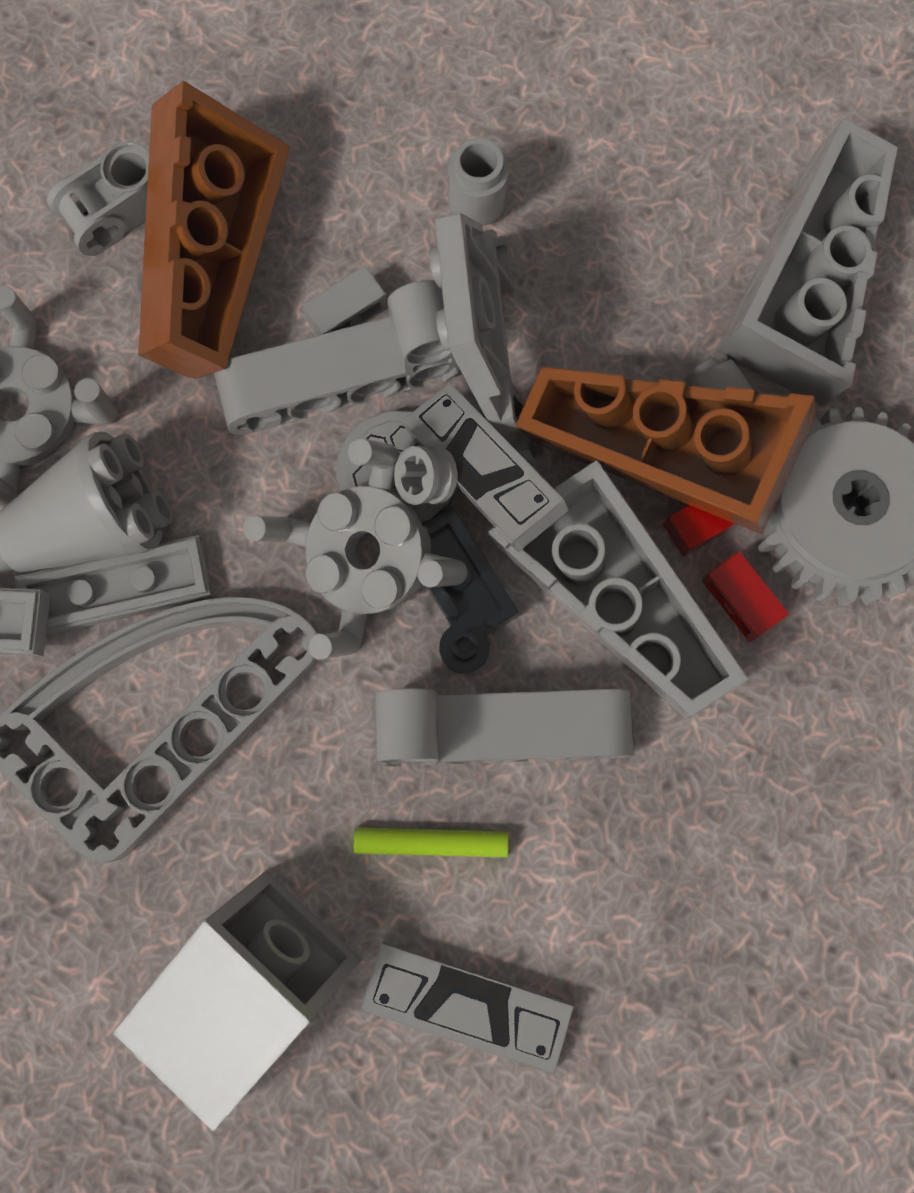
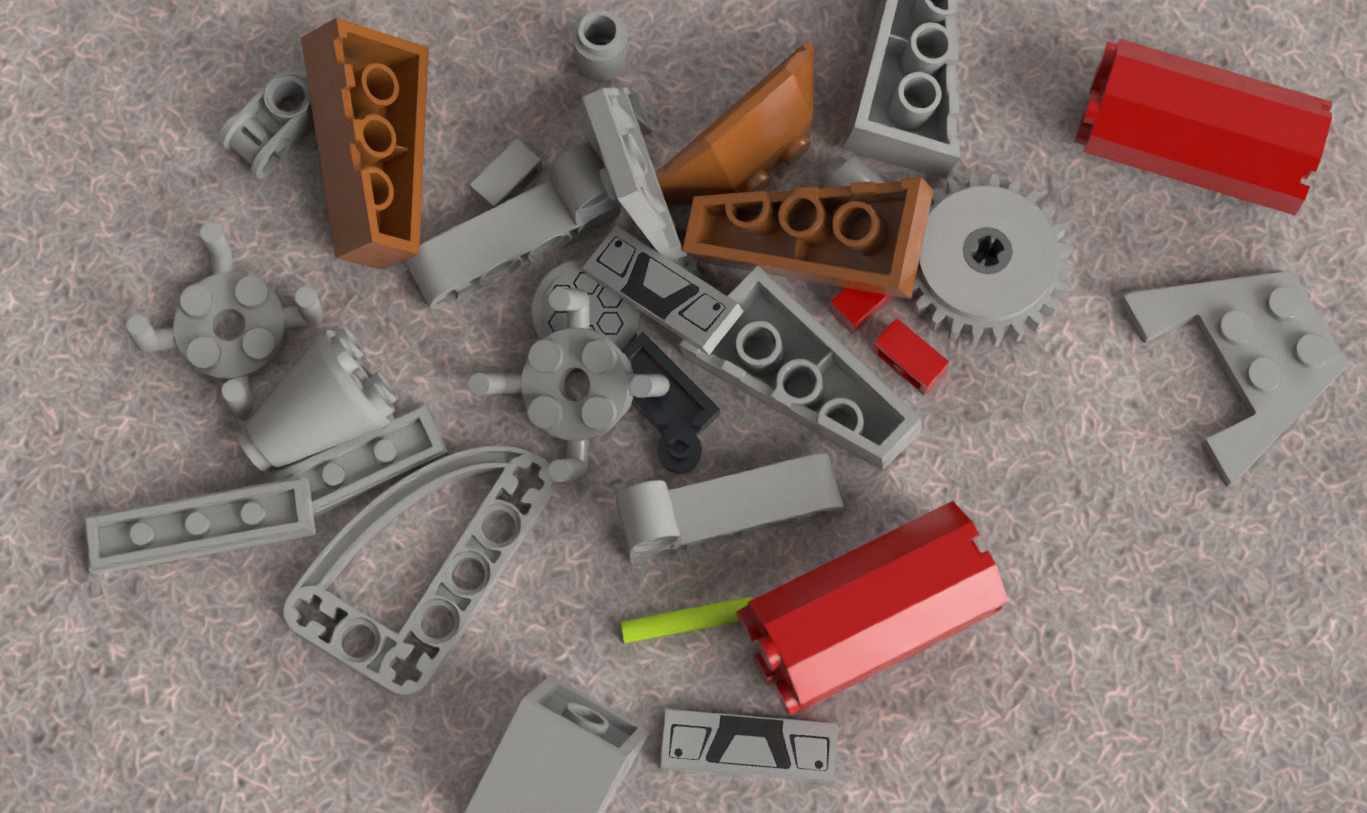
camera: 15 degrees left, 5 degrees down
(425, 475) = (627, 313): light grey bush -> none
(618, 316) = (749, 138): none -> dark orange wedge
(646, 889) = (872, 607): none -> red brick

